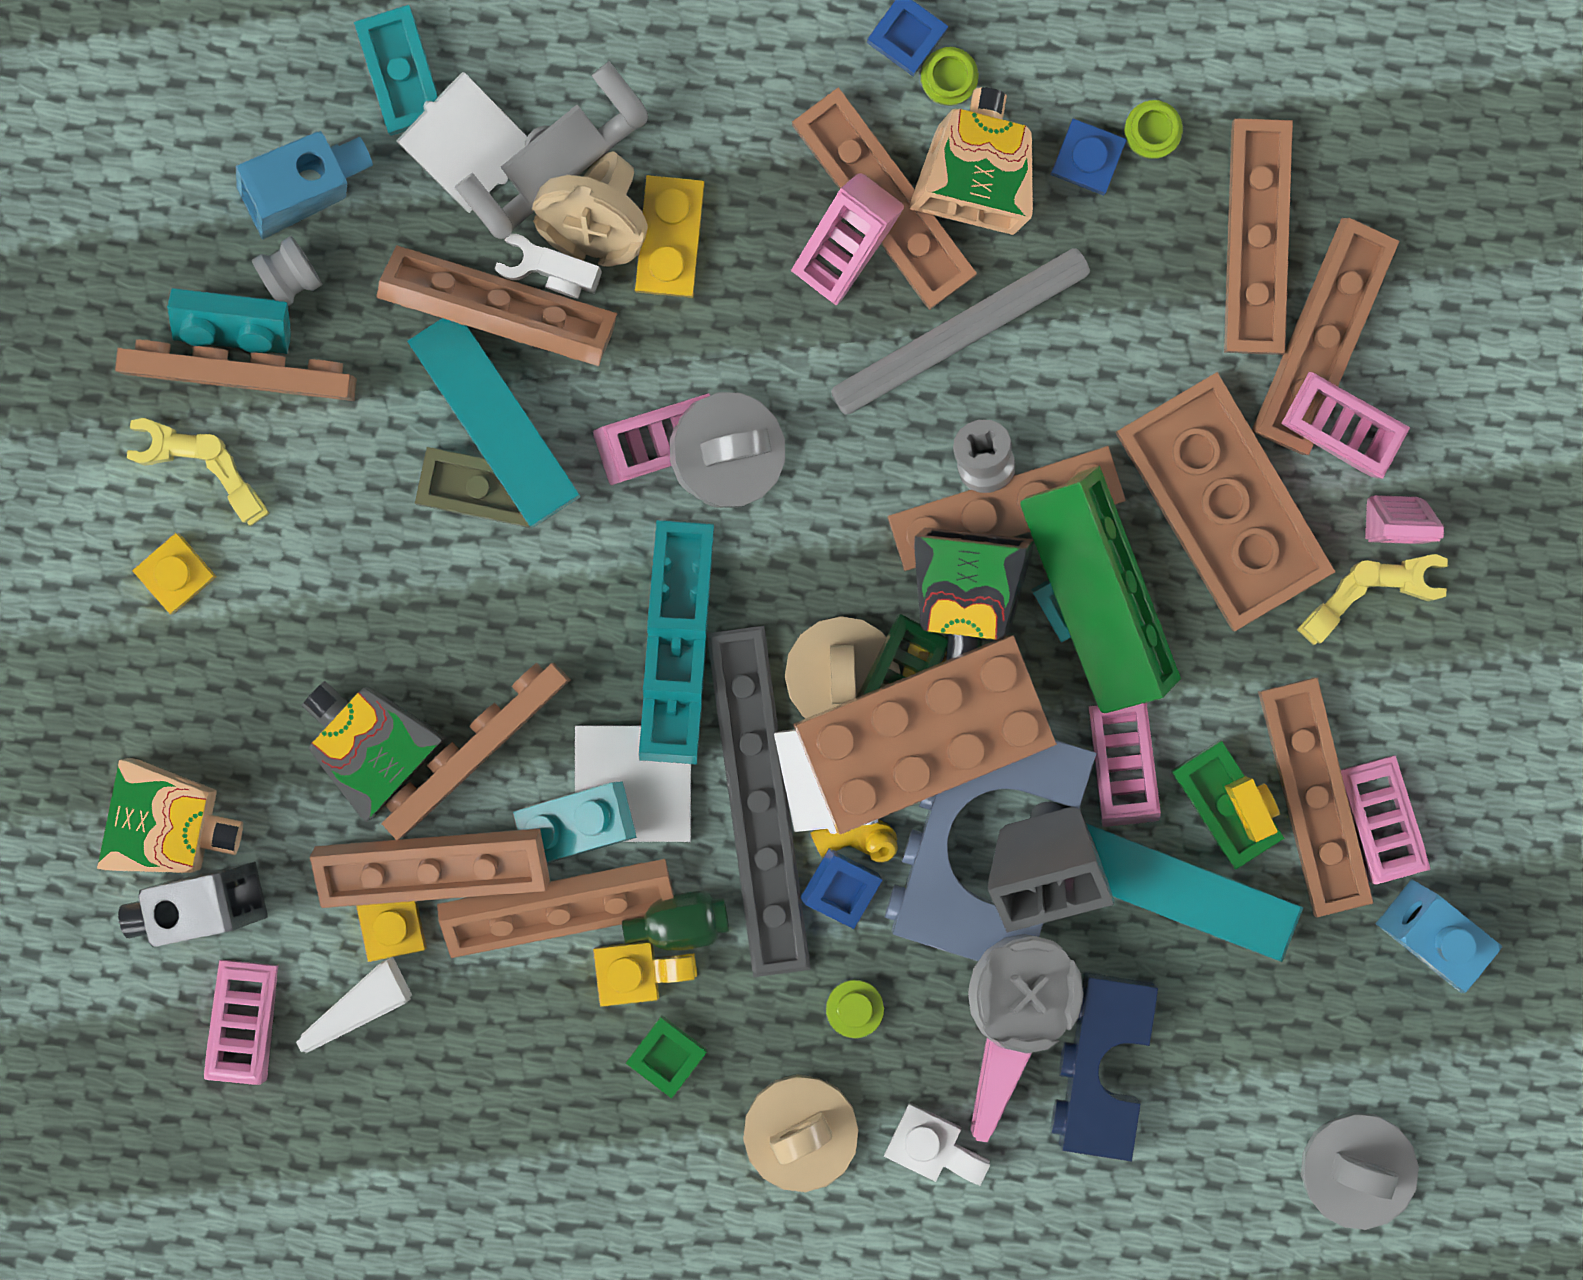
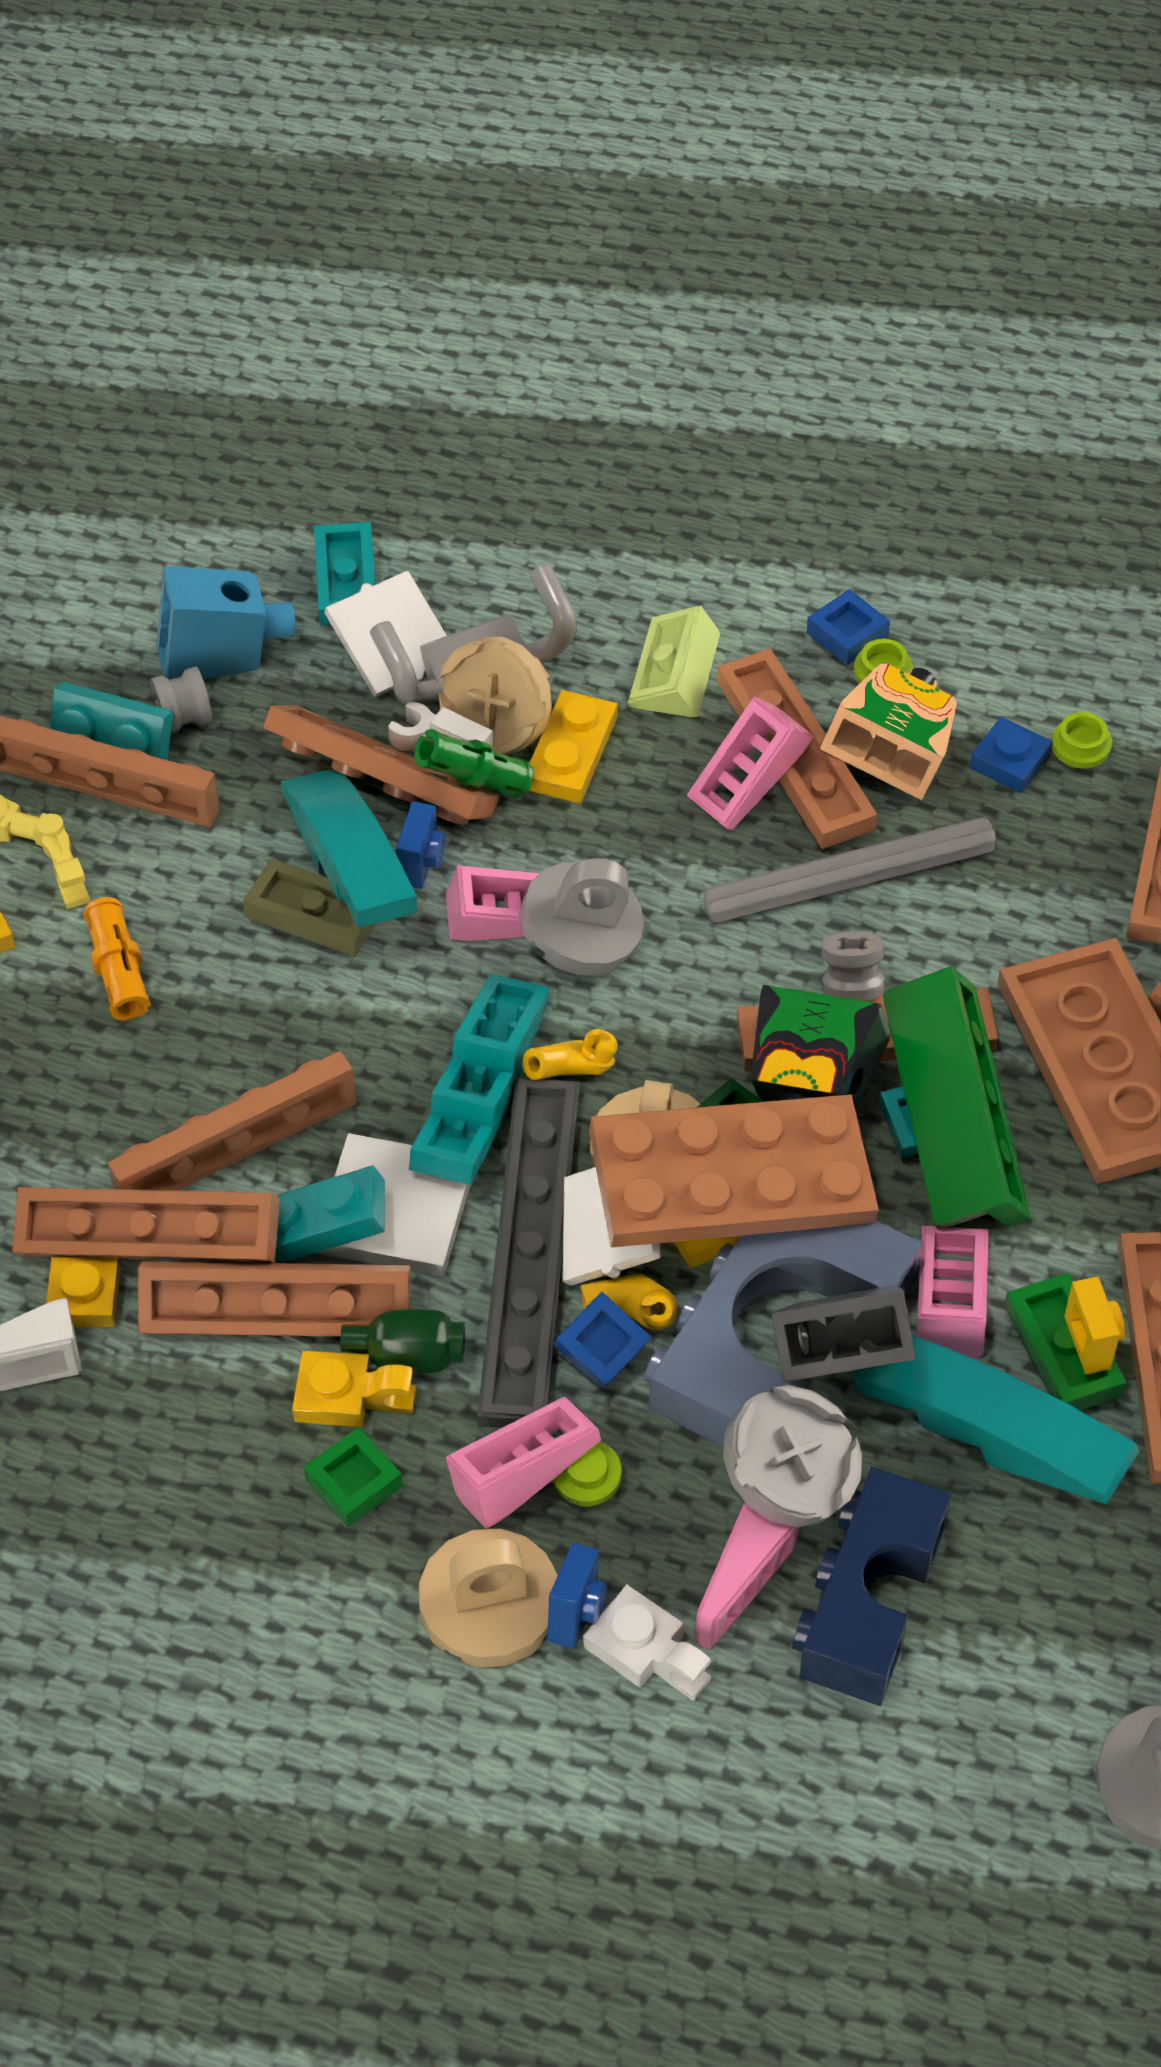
camera: 10 degrees right, 35 degrees down
(315, 582) = (116, 958): none -> light orange pin
(368, 745) = (119, 1100): torso -> none
(560, 399) = (420, 843): none -> blue plate
(565, 318) = (473, 763): none -> green pin
(746, 109) = (675, 663): none -> yellowish green slope
(749, 599) = (572, 1057): none -> yellow arm
(773, 1016) = (505, 1471): none -> bright pink slope
(874, 1131) = (575, 1596): none -> blue plate

